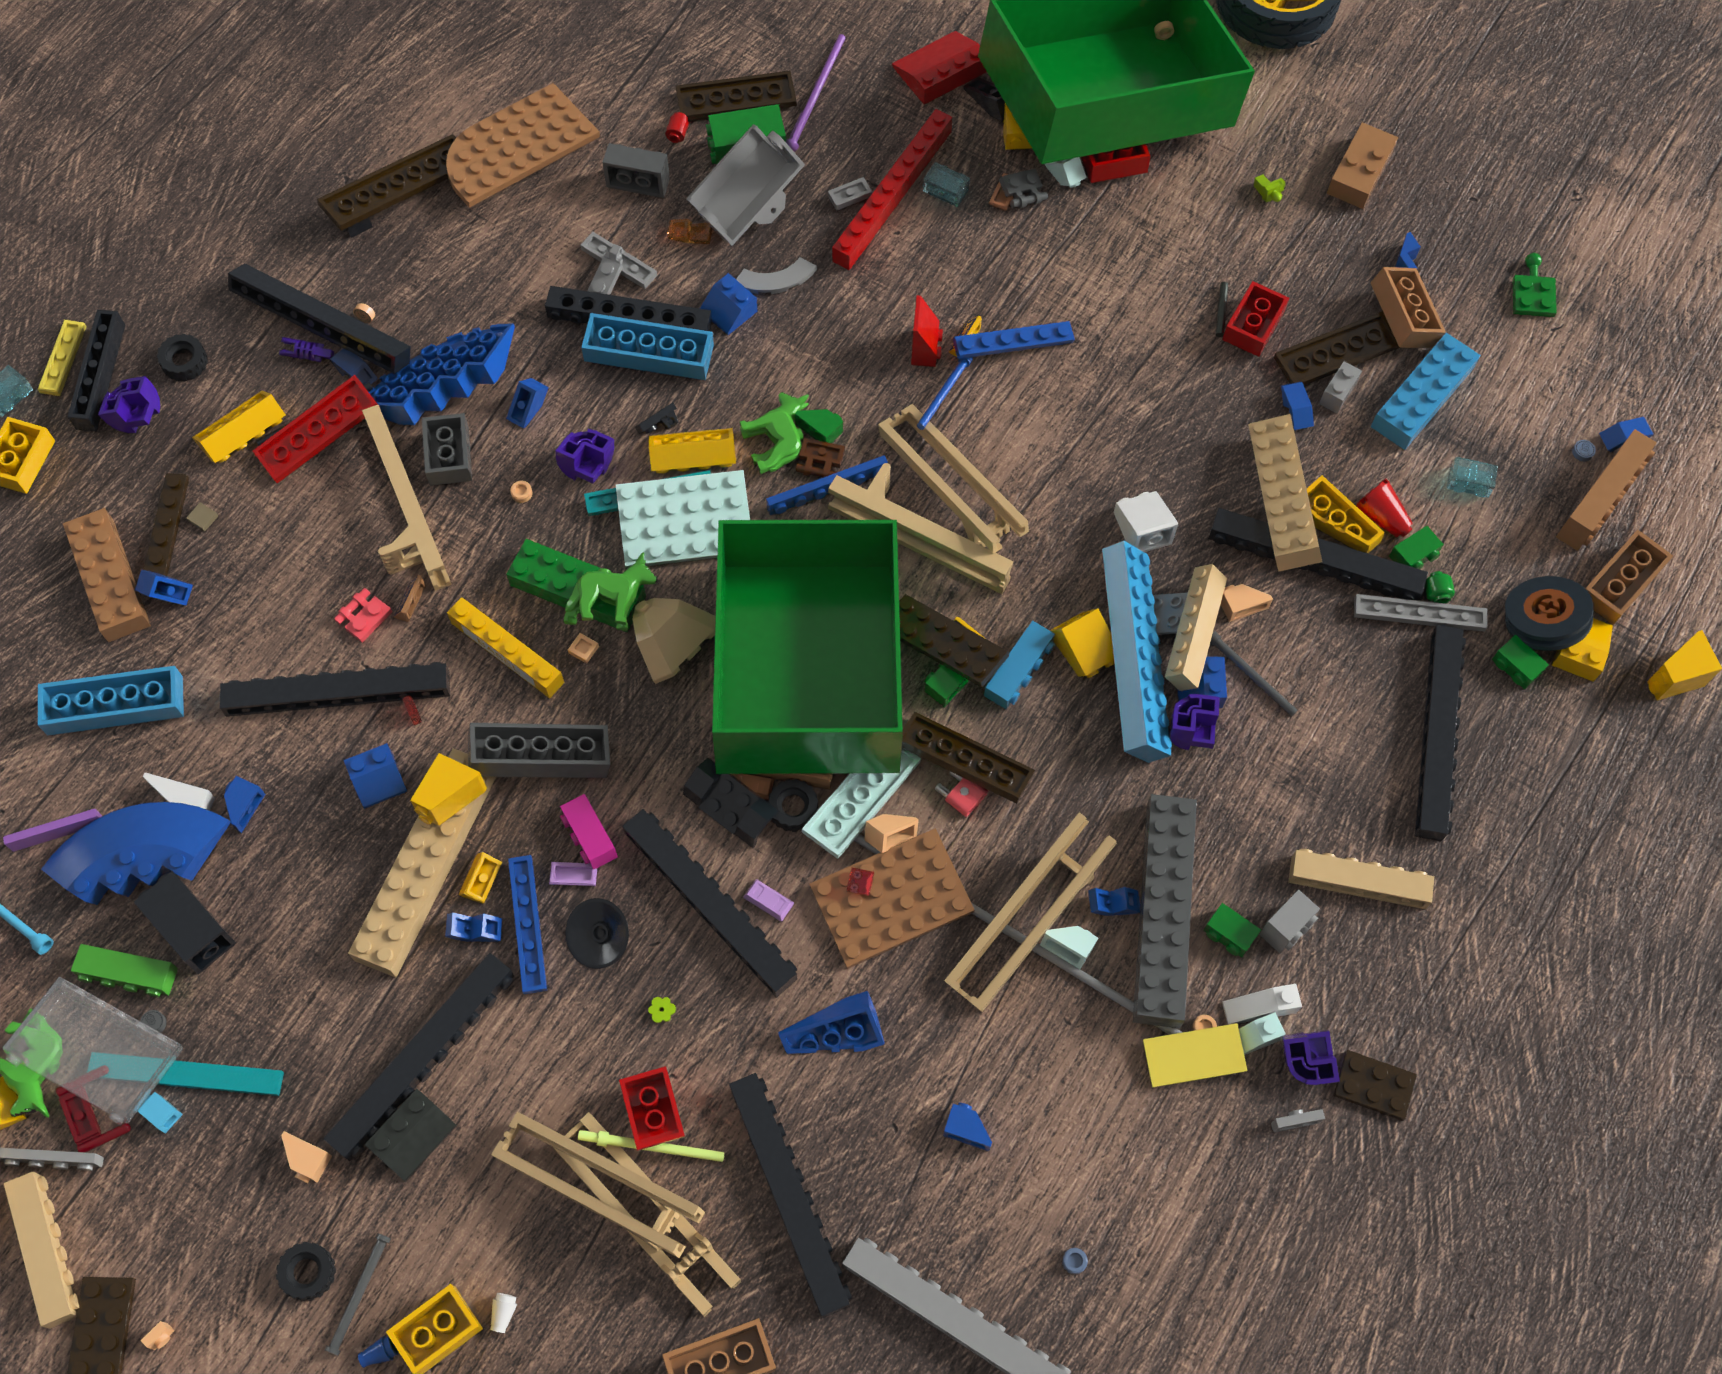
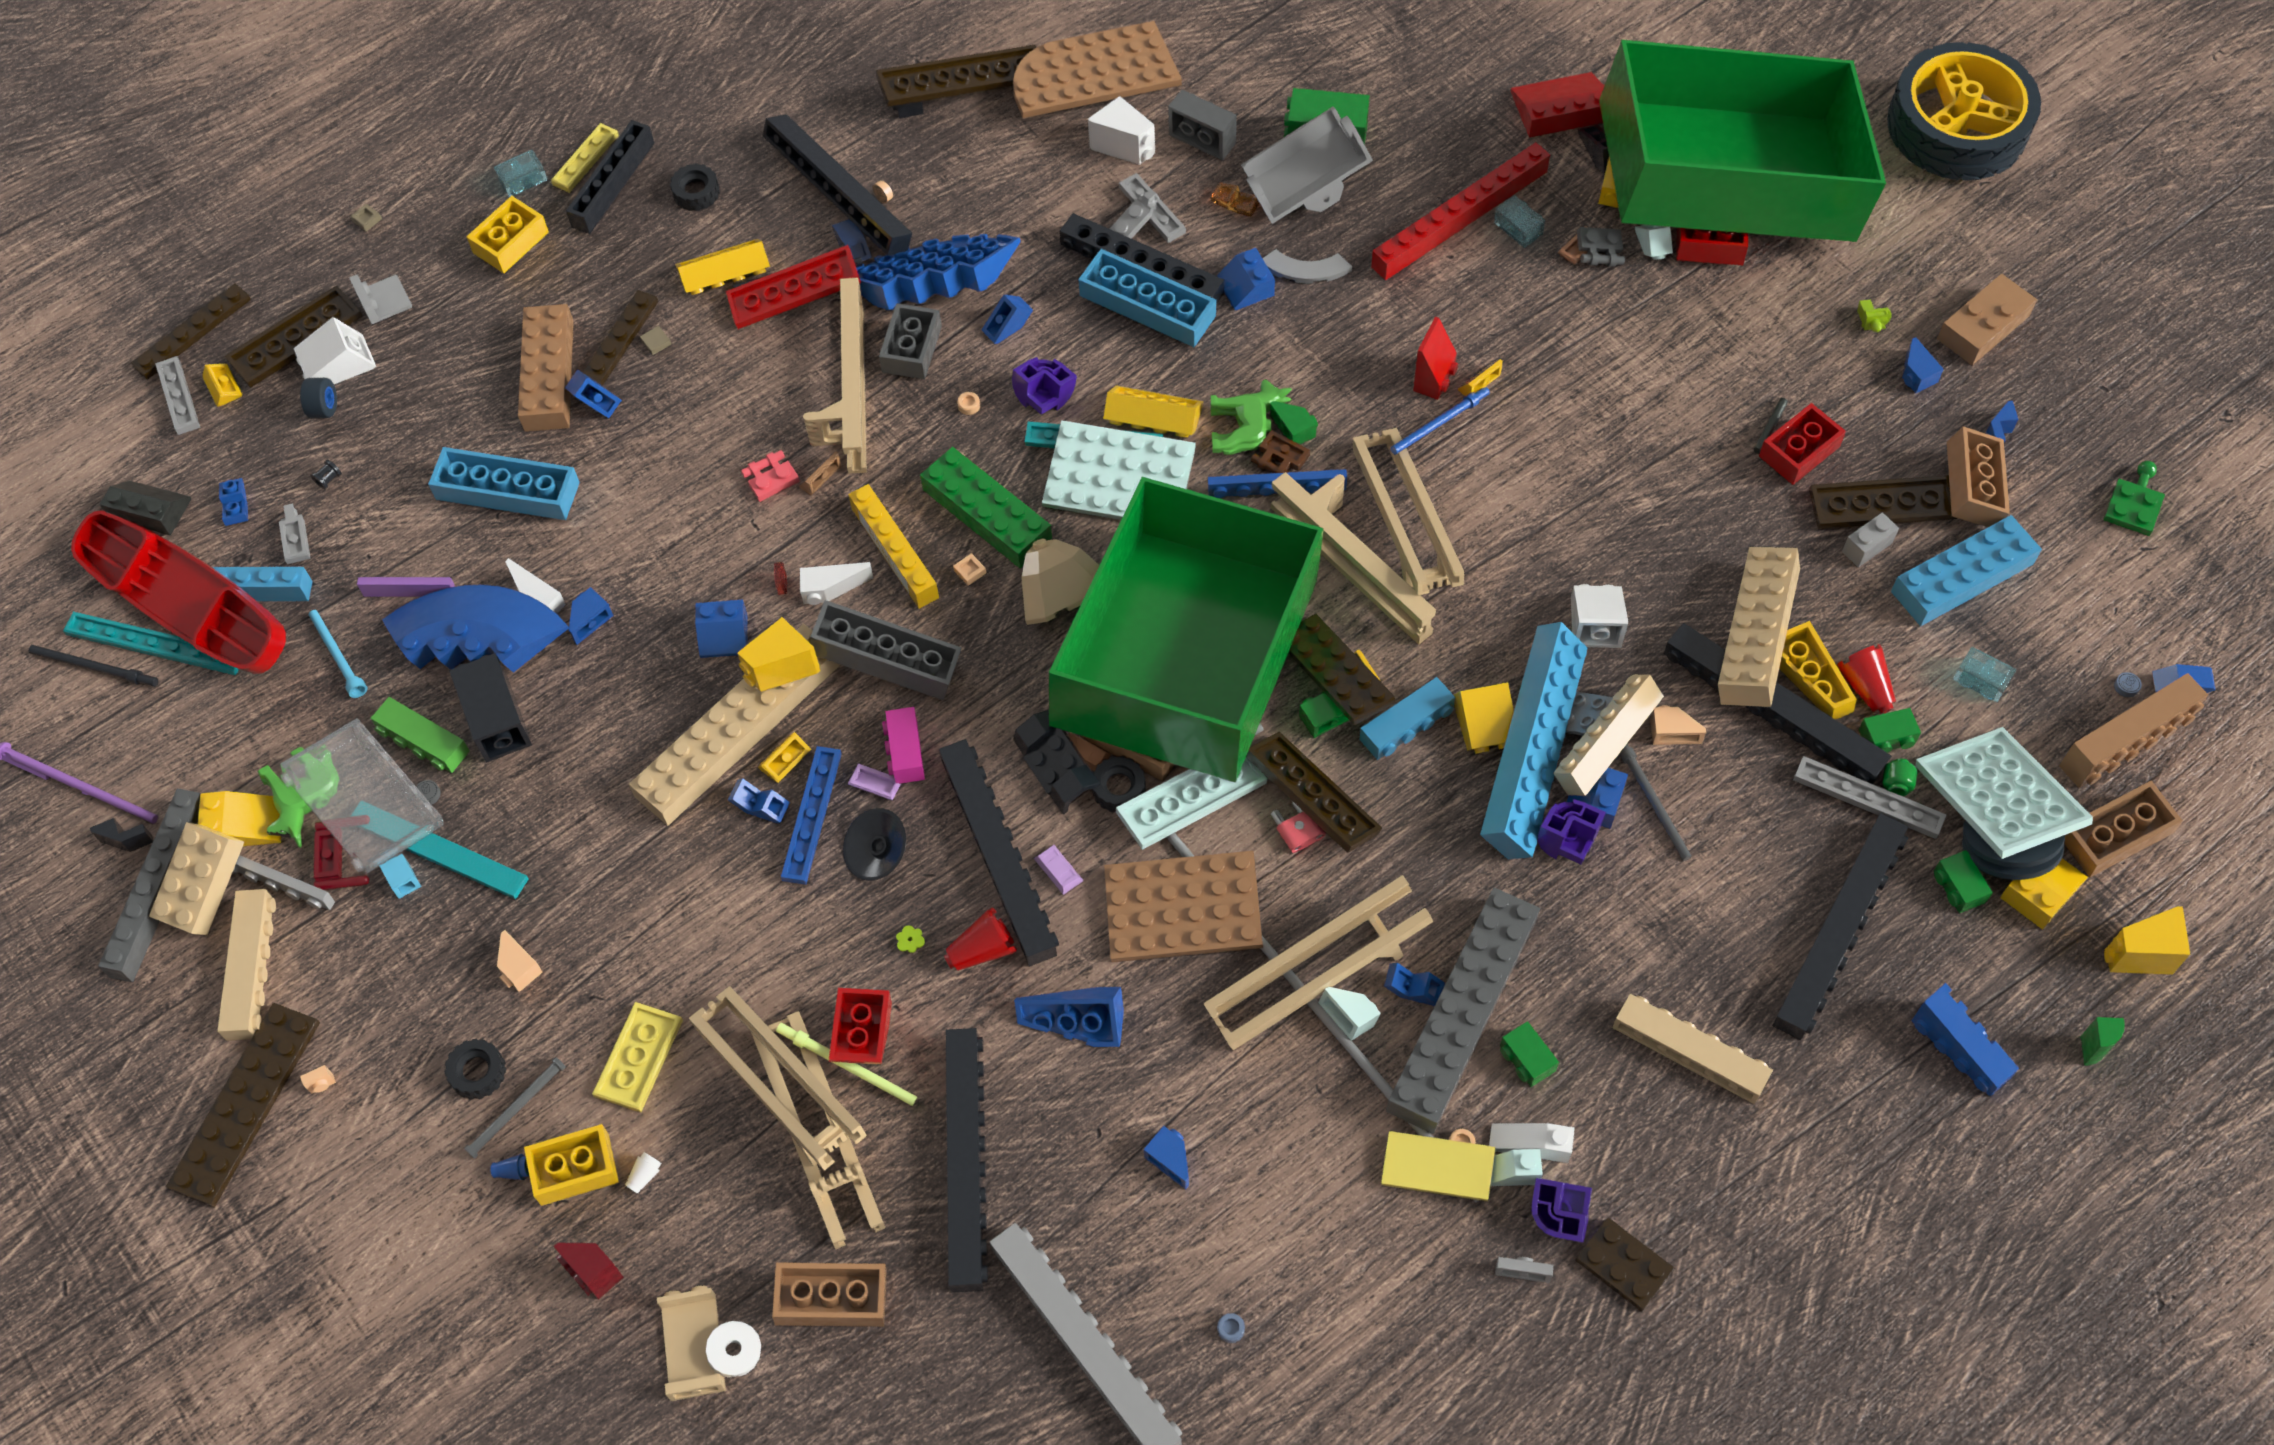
camera: 25 degrees right, 5 degrees down
(130, 405) = (629, 217): dark purple brick -> none
(306, 350) = (813, 211): dark purple hinge -> none
(334, 689) = (713, 535): black brick -> none
(410, 1135) = (621, 975): pearl dark grey slope -> none
(419, 1057) = (659, 905): black brick -> none
(454, 1205) = (637, 1057): none -> light yellow tile
(458, 700) = (832, 581): none -> white slope
(567, 197) = (1122, 132): none -> white slope
(611, 588) = (1015, 516): bright green animal -> none
(665, 416) = (1139, 369): black hinge -> none
(677, 127) = (1261, 94): red brick -> none
(728, 992) = (980, 943): none -> red cone
(736, 94) = (1334, 76): dark brown plate -> none
(798, 128) = (1372, 141): medium lavender bar -> none
(849, 193) = (1413, 204): light grey plate -> none
(860, 881) = (1155, 877): clear red tile -> none
(890, 830) = (1206, 838): light nougat slope -> none
(1013, 339) = (1529, 393): blue plate -> none
(1164, 30) = (1816, 125): light nougat tile -> none
(1290, 922) = (1593, 1064): light grey brick -> none
(1299, 405) = (1816, 545): blue slope -> none
(1323, 222) = (1920, 367): none -> blue slope
(1528, 576) = (2003, 792): none -> light aqua plate
(1571, 799) = (1964, 1041): none -> blue wedge
(1676, 761) = (2100, 1038): none -> green brick

